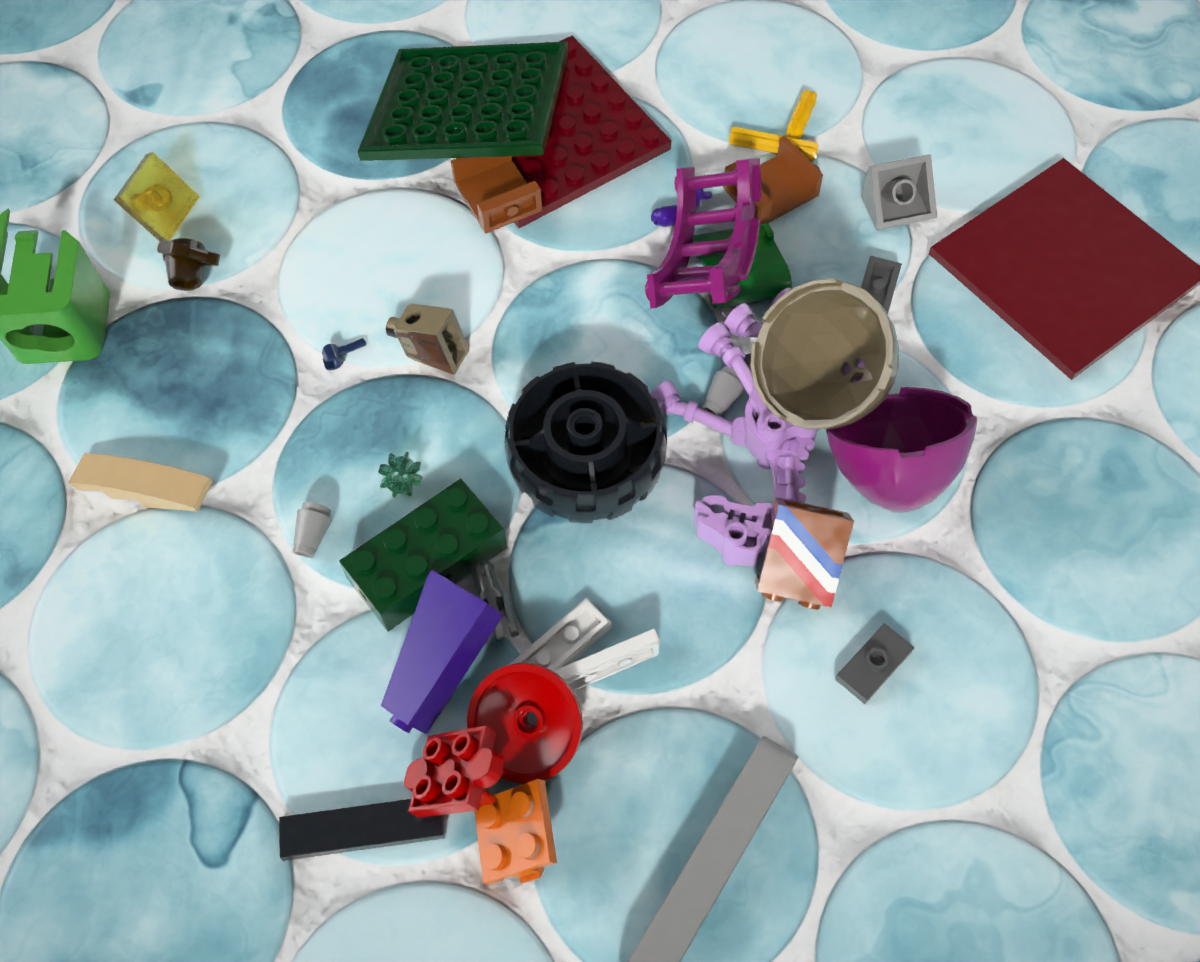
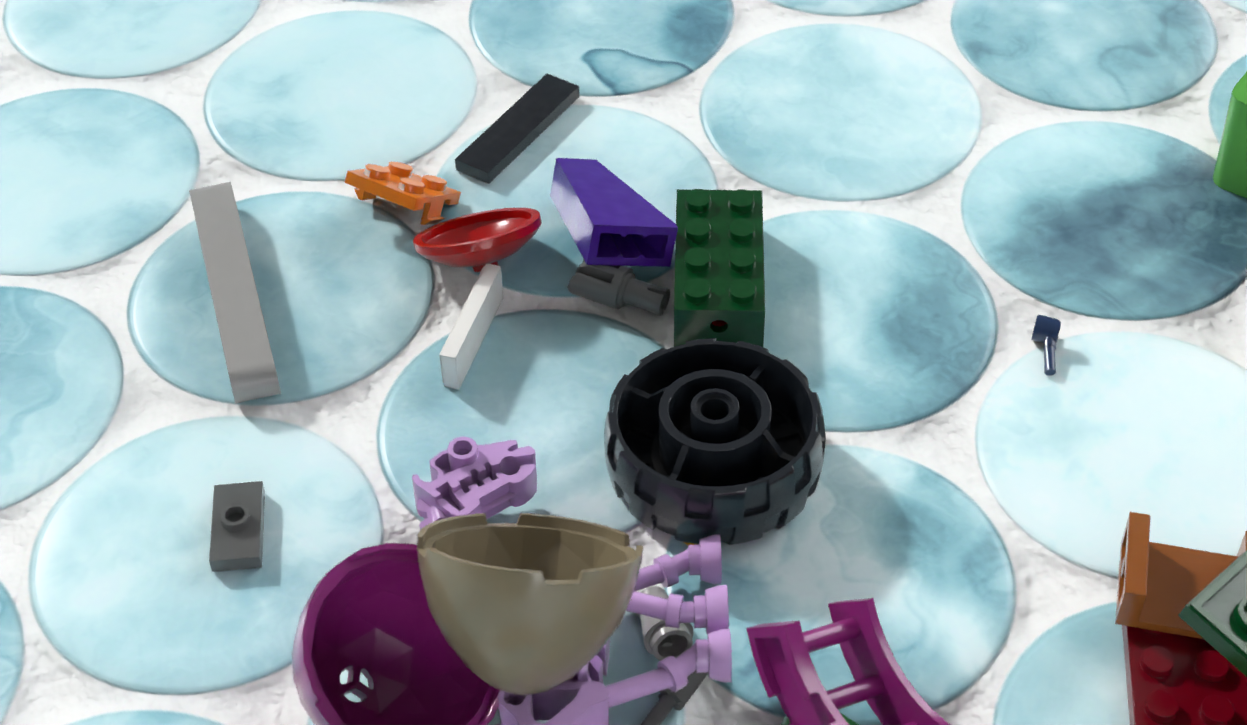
camera: 130 degrees right, 15 degrees down
(141, 480) = (993, 135): tan slope -> none
(310, 528) = (836, 217): light grey cone -> none
(403, 466) = (828, 295): clear green gear -> none
(430, 336) = (987, 399): dark tan torso -> none
(454, 773) = (477, 161): red piece -> none
(567, 638) = (528, 317): white tile -> none
(804, 553) = (391, 505): panel -> none

